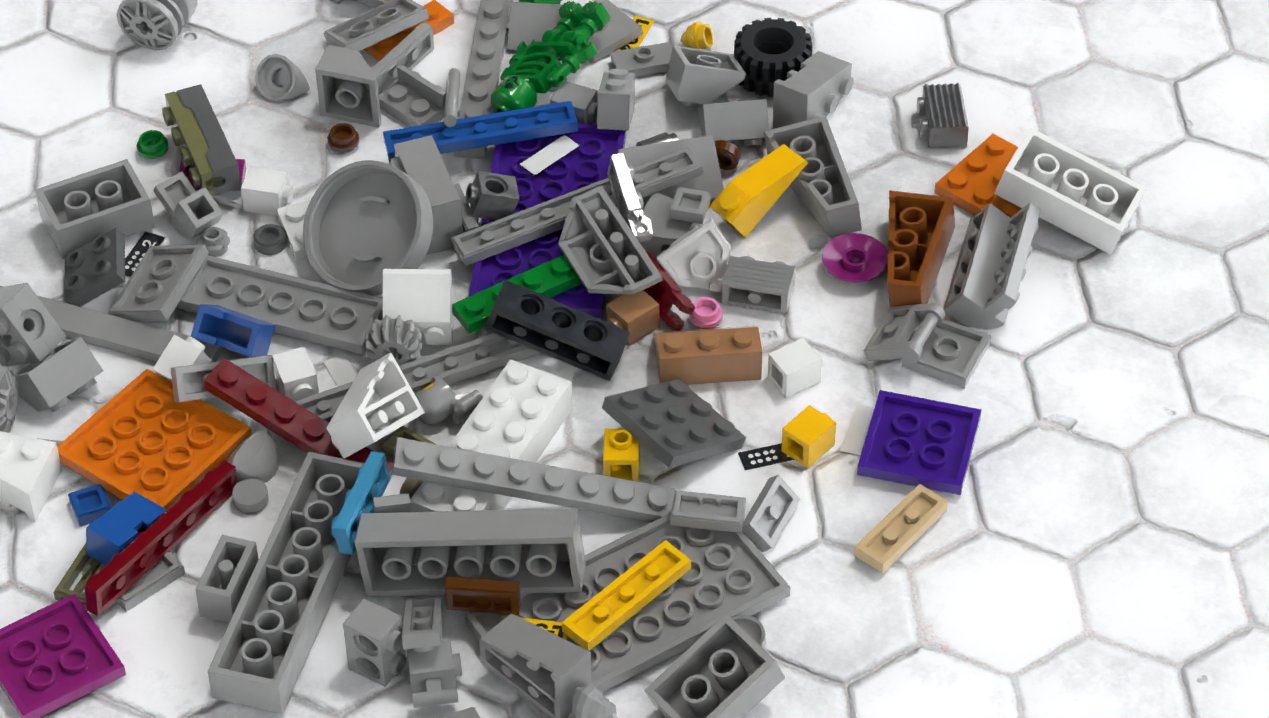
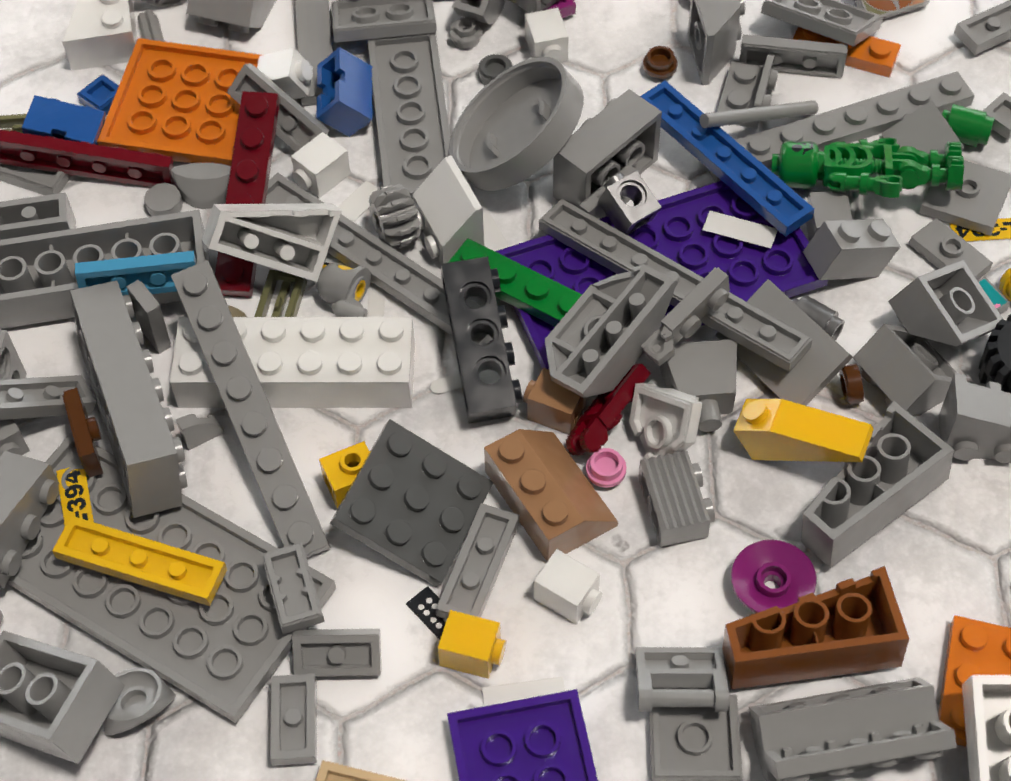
camera: 65 degrees right, 10 degrees up
(690, 205) = (724, 378): light grey plate -> none
(743, 410) = (479, 562): none -> light grey plate
(809, 556) = (293, 719): none -> light grey plate

